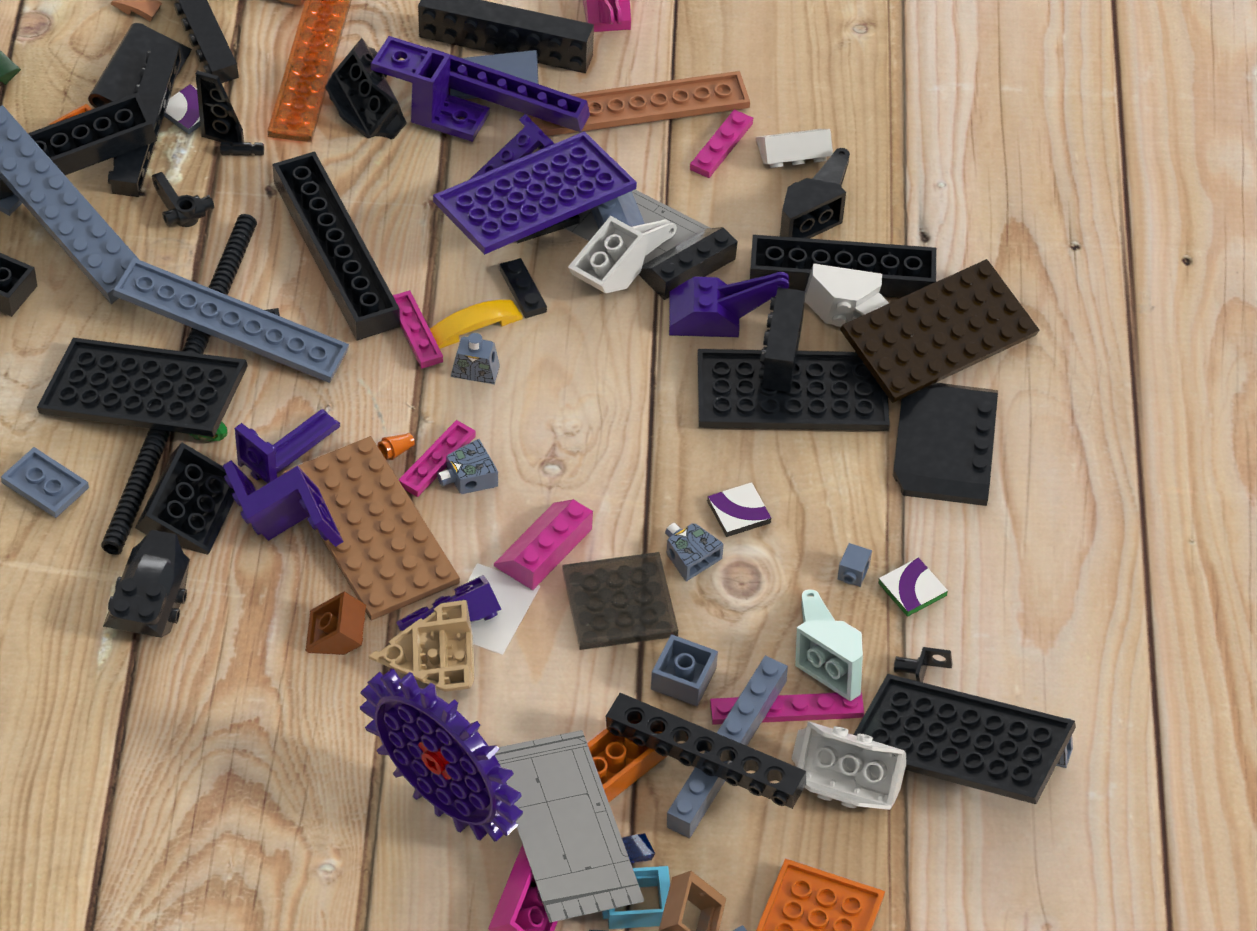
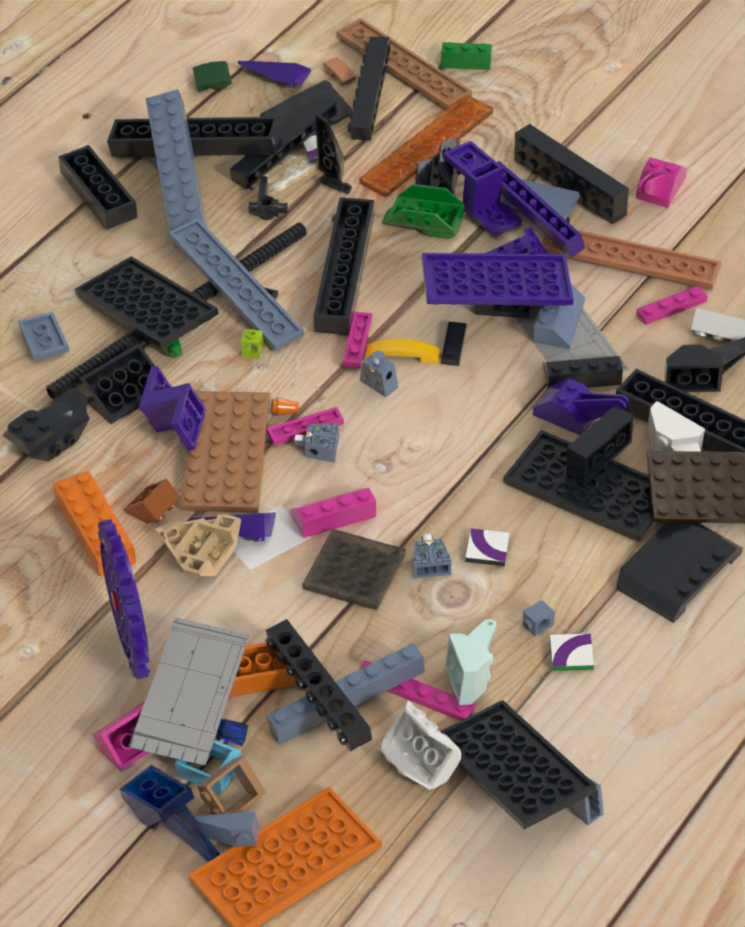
camera: 35 degrees right, 5 degrees down
(78, 32) = (286, 73): none -> dark purple wedge
(269, 459) = (211, 379): dark purple bracket -> none
(289, 681) = (84, 509): none -> orange brick
(302, 385) = (252, 343): none -> lime brick
(376, 139) = (428, 209): none -> green slope
(618, 253) = (529, 342): white slope -> none
(684, 670) = (358, 631): sand blue brick -> none
(919, 665) = (530, 706): black bracket -> none

